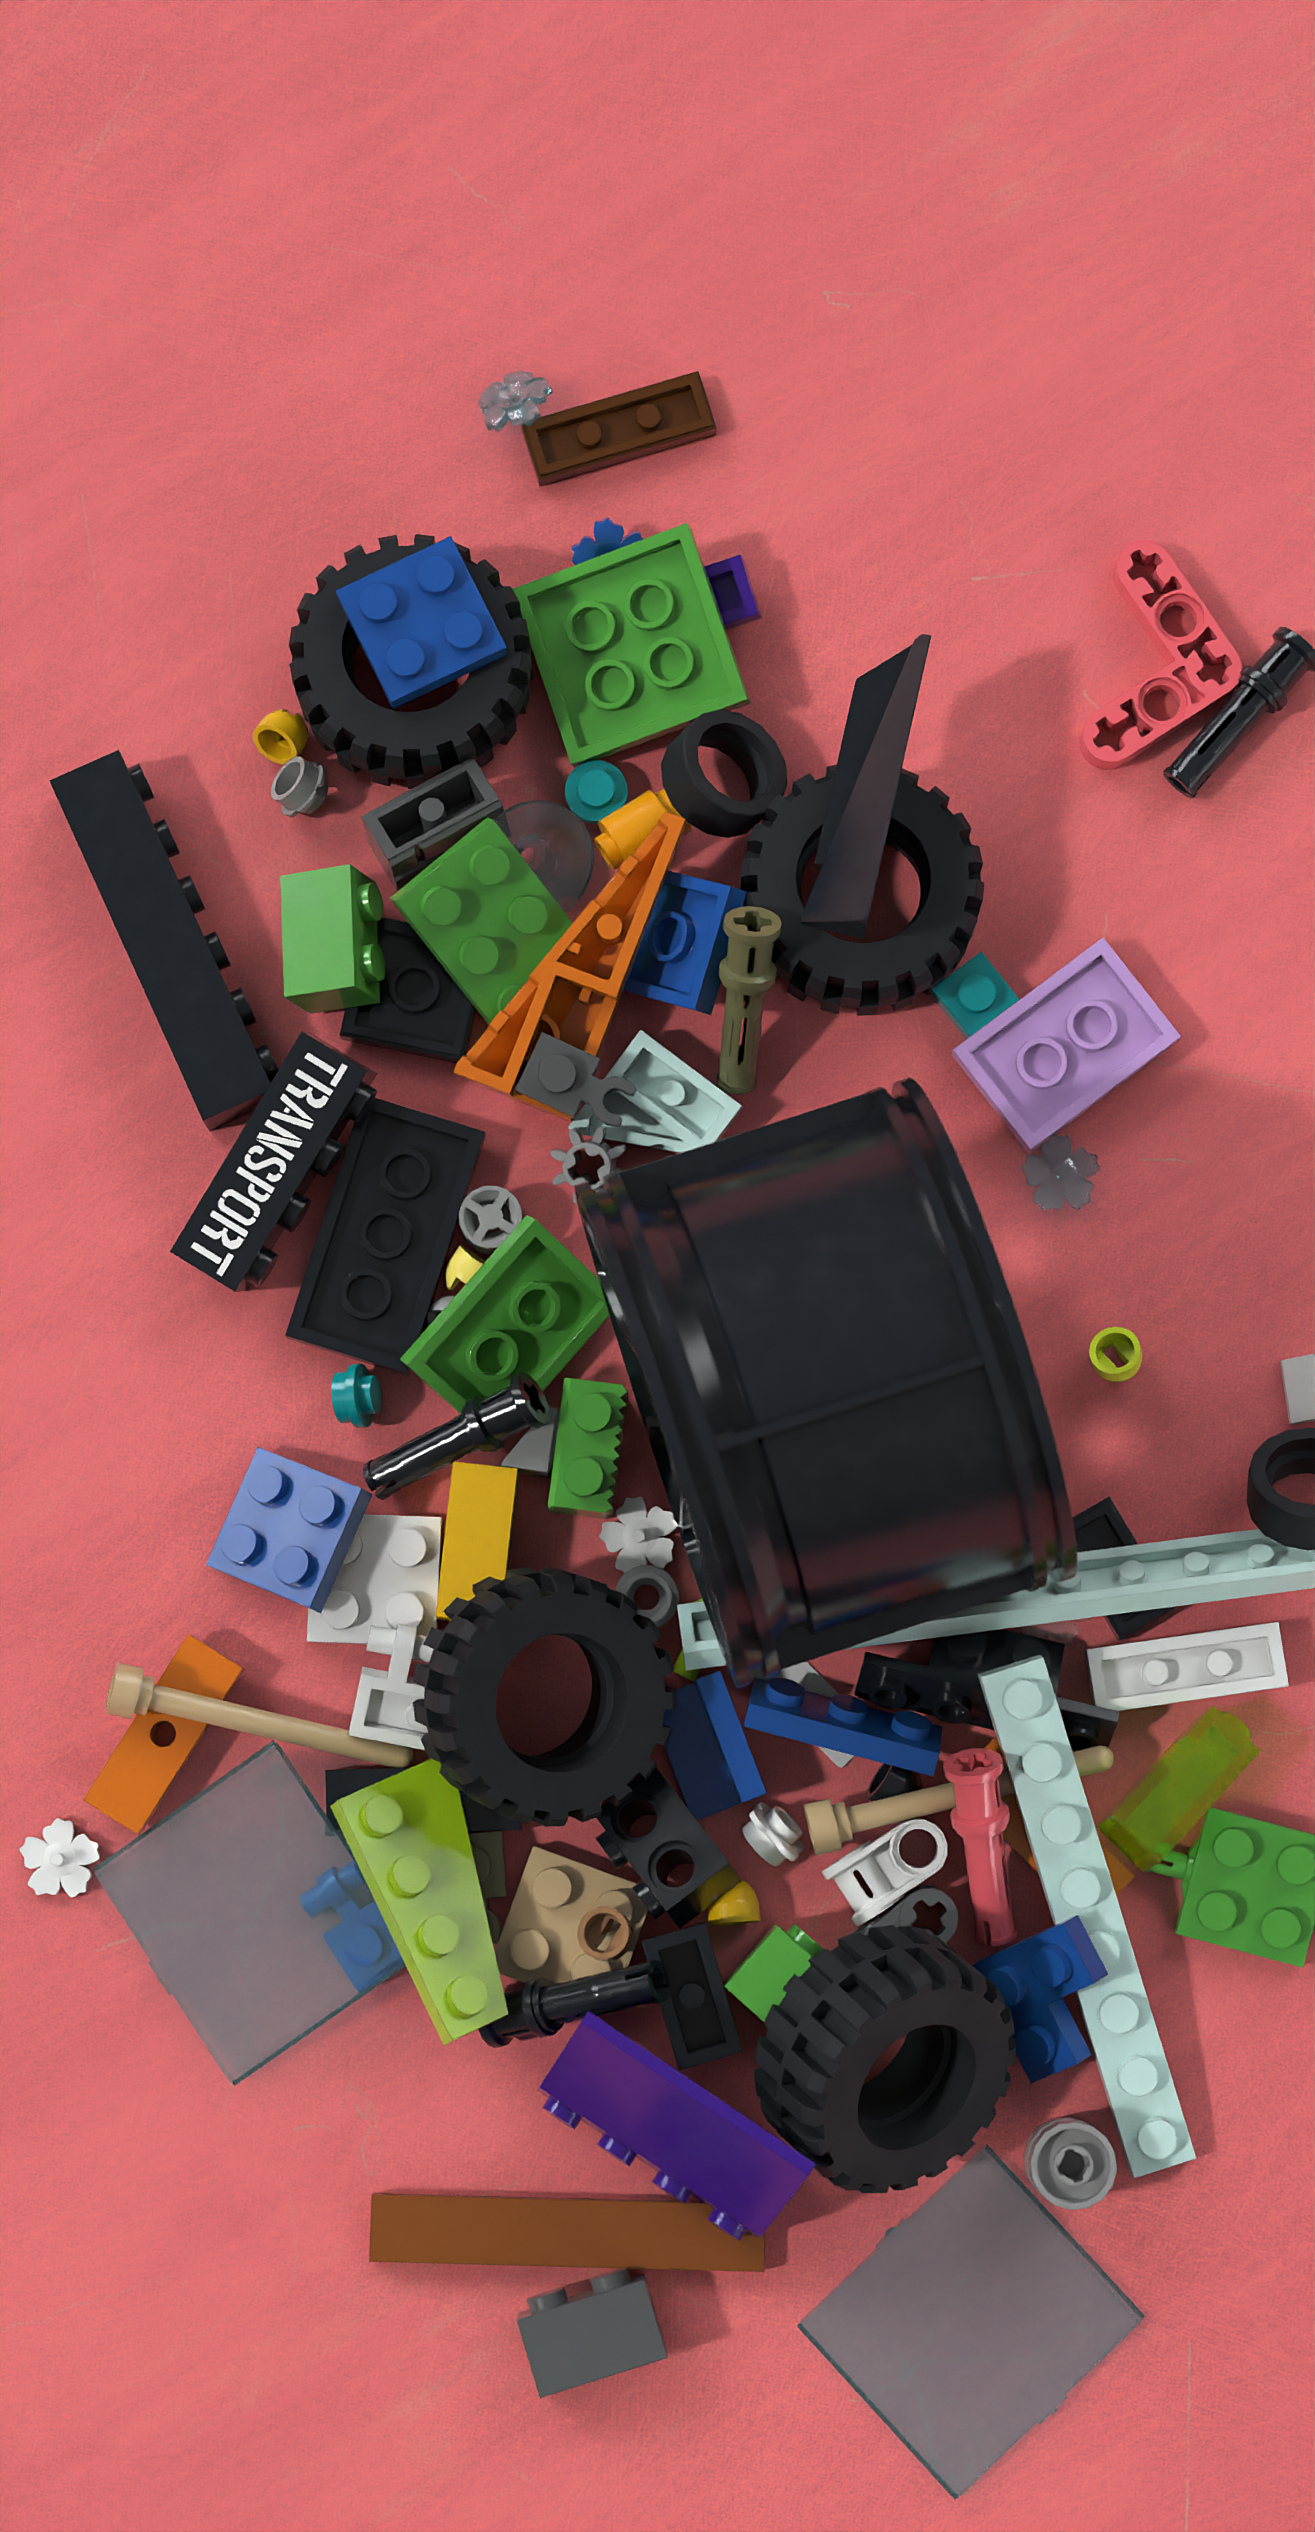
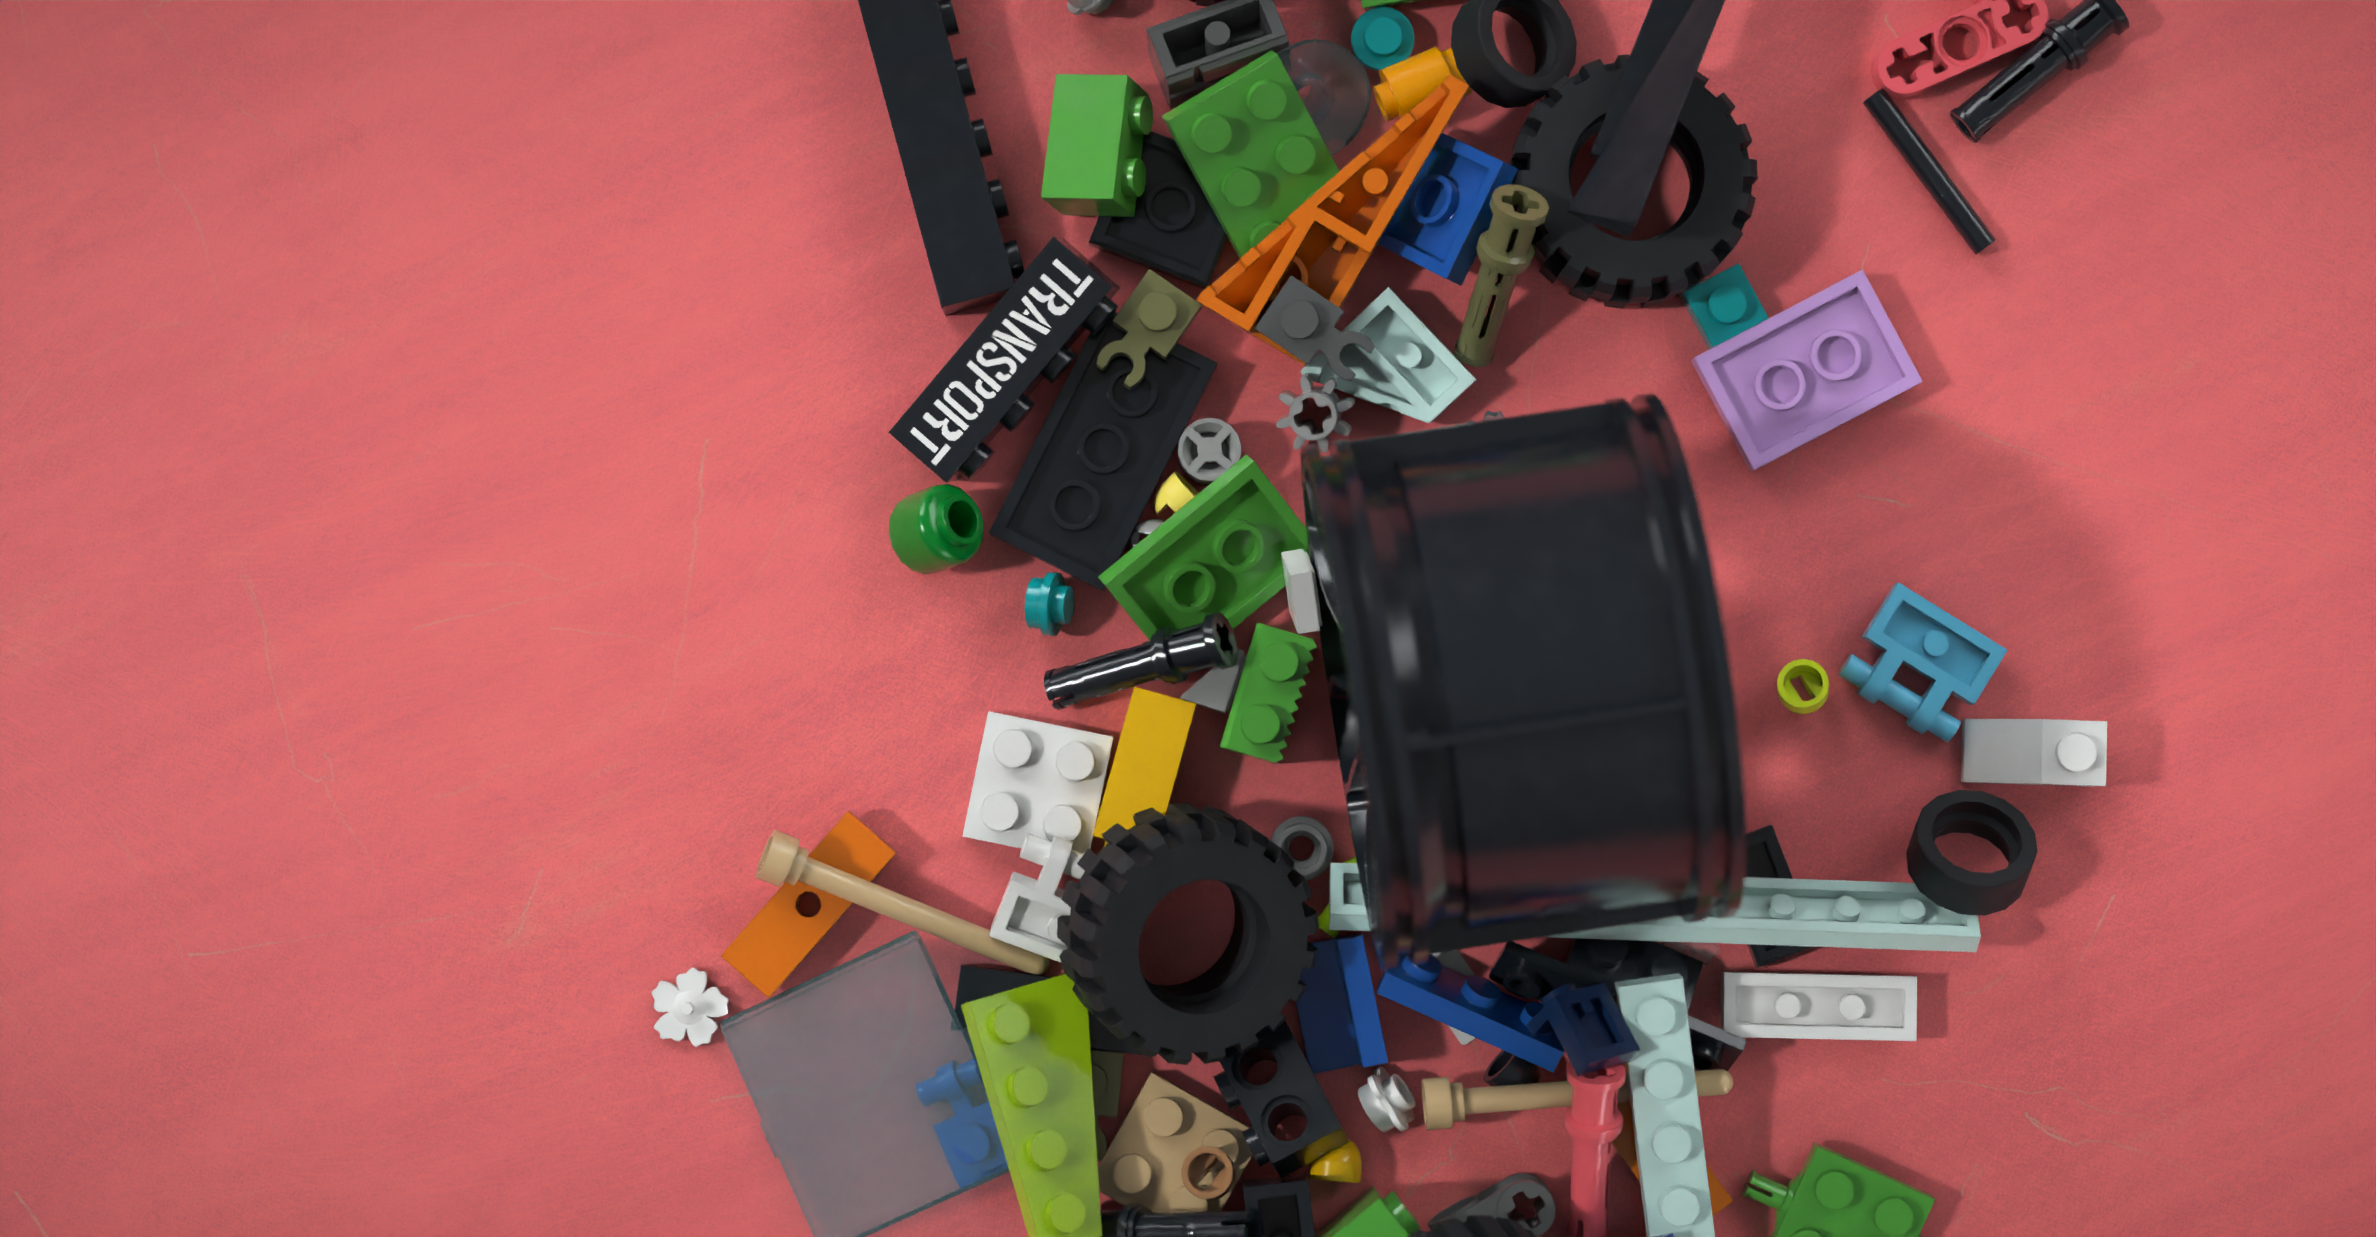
camera: 10 degrees right, 5 degrees up
(232, 1339) = (936, 529): none -> green head
(289, 1529) = (962, 725): plate -> none
(413, 1100) = (1153, 320): none -> olive plate
(603, 1340) = (1301, 591): none -> white tile
(640, 1535) = (1304, 786): white plant -> none
(883, 1870) = (1490, 1153): white piece -> none
(956, 1721) = (1586, 1026): none -> dark blue bracket
(1061, 1174) = (1778, 497): clear light blue plant -> none
(1152, 832) = (1929, 171): none -> black bar
(1179, 1787) = (1792, 1123): clear neon green brick -> none
(1237, 1293) = (1934, 646): none -> medium azure plate

